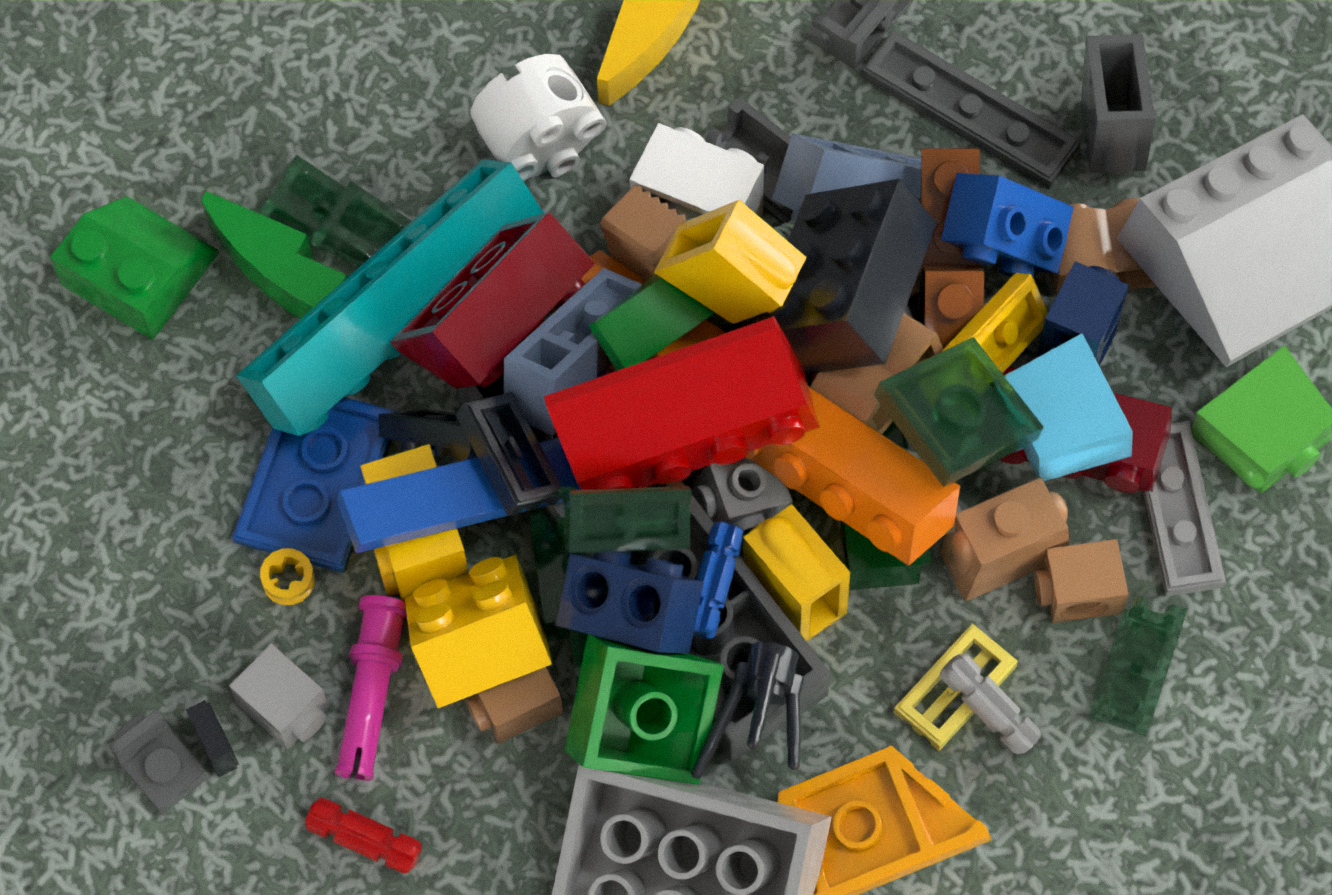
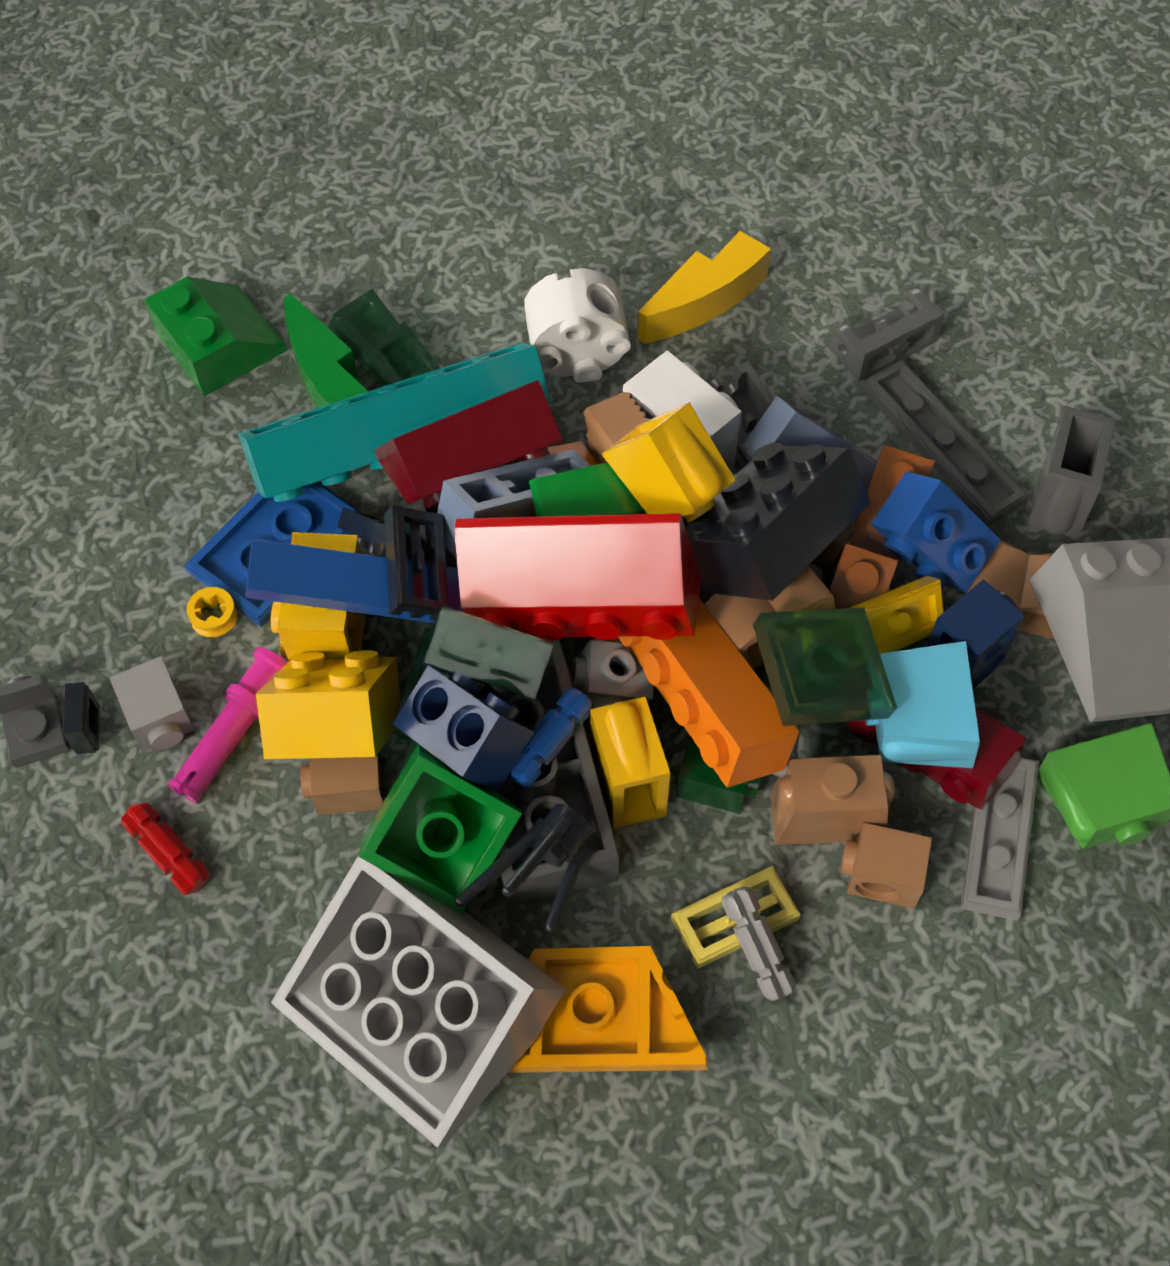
camera: 20 degrees right, 5 degrees down
(1137, 666) = (909, 961): clear green hinge -> none

